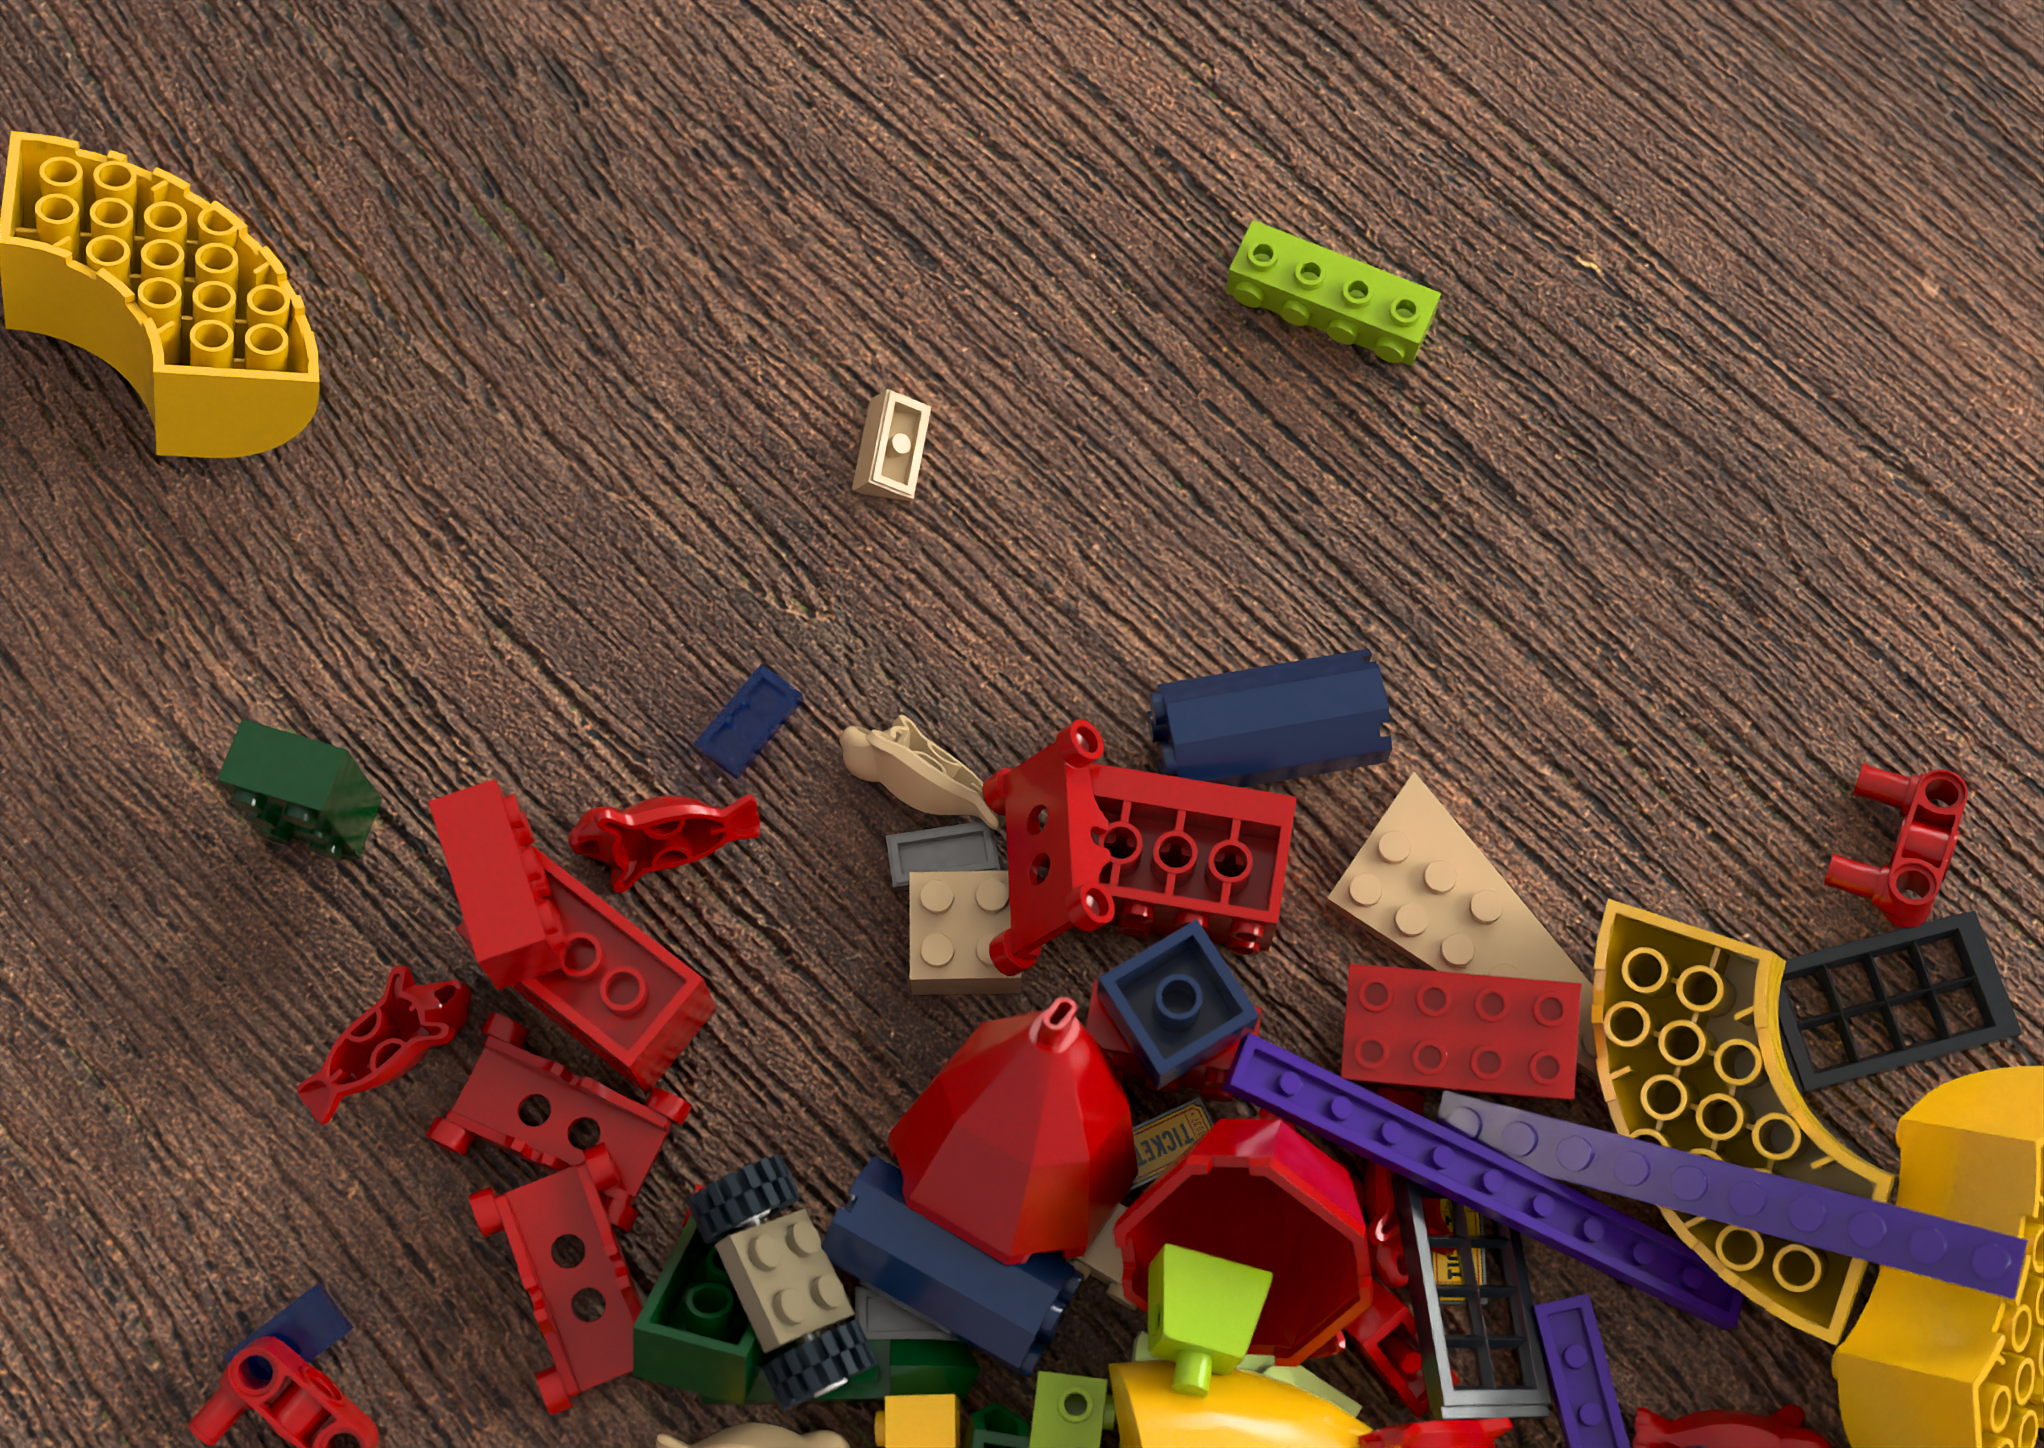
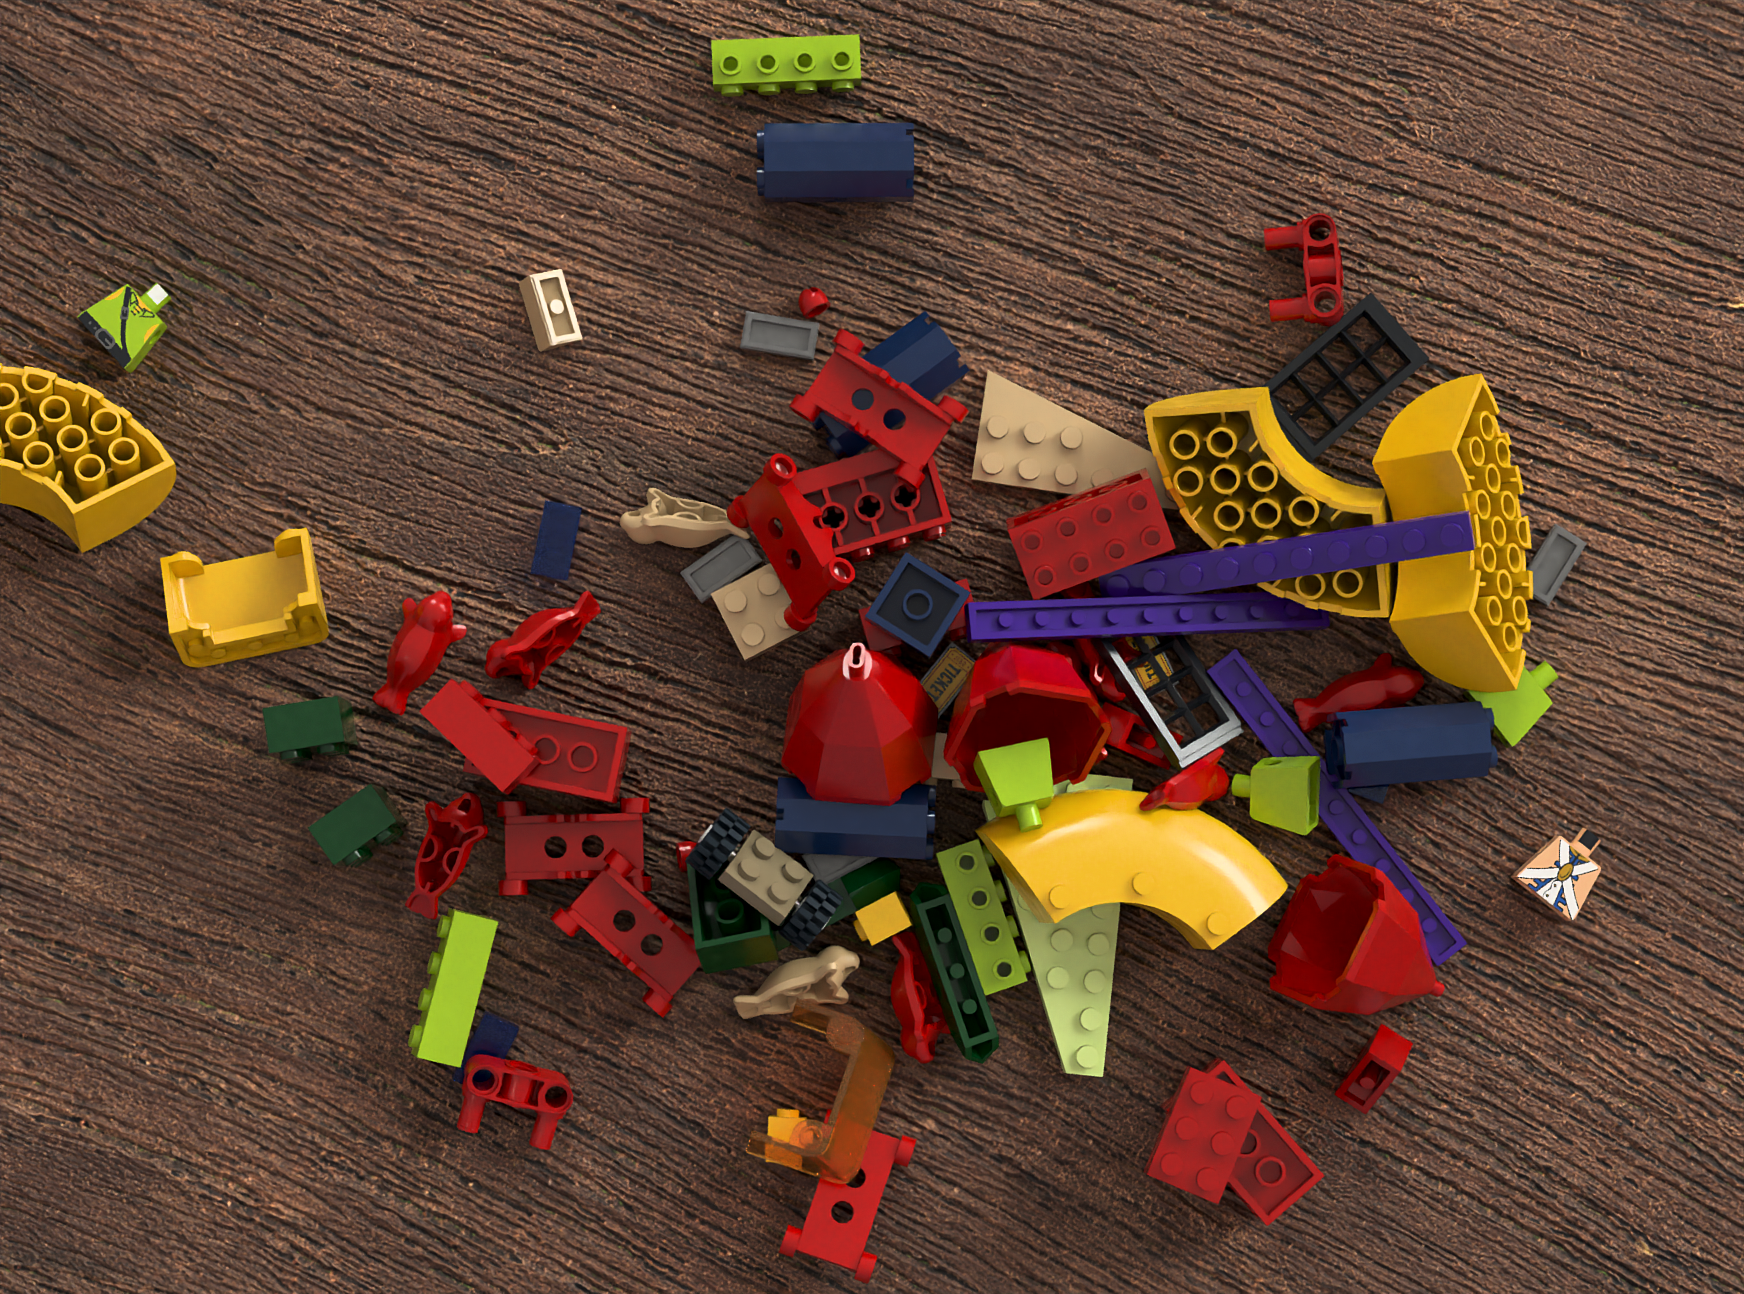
camera: 30 degrees left, 15 degrees up
(287, 945) = (358, 827): none -> dark green brick
(294, 1229) = (453, 987): none -> lime brick
(313, 613) = (245, 602): none -> yellow windscreen
(373, 226) = (127, 323): none -> lime torso
(519, 758) = (418, 648): none -> red animal
(1163, 608) = (779, 336): none -> flat silver tile
(1226, 587) = (813, 302): none -> red hinge
(1234, 670) = (849, 373): none -> red piece
(1338, 426) = (836, 162): none -> dark blue brick

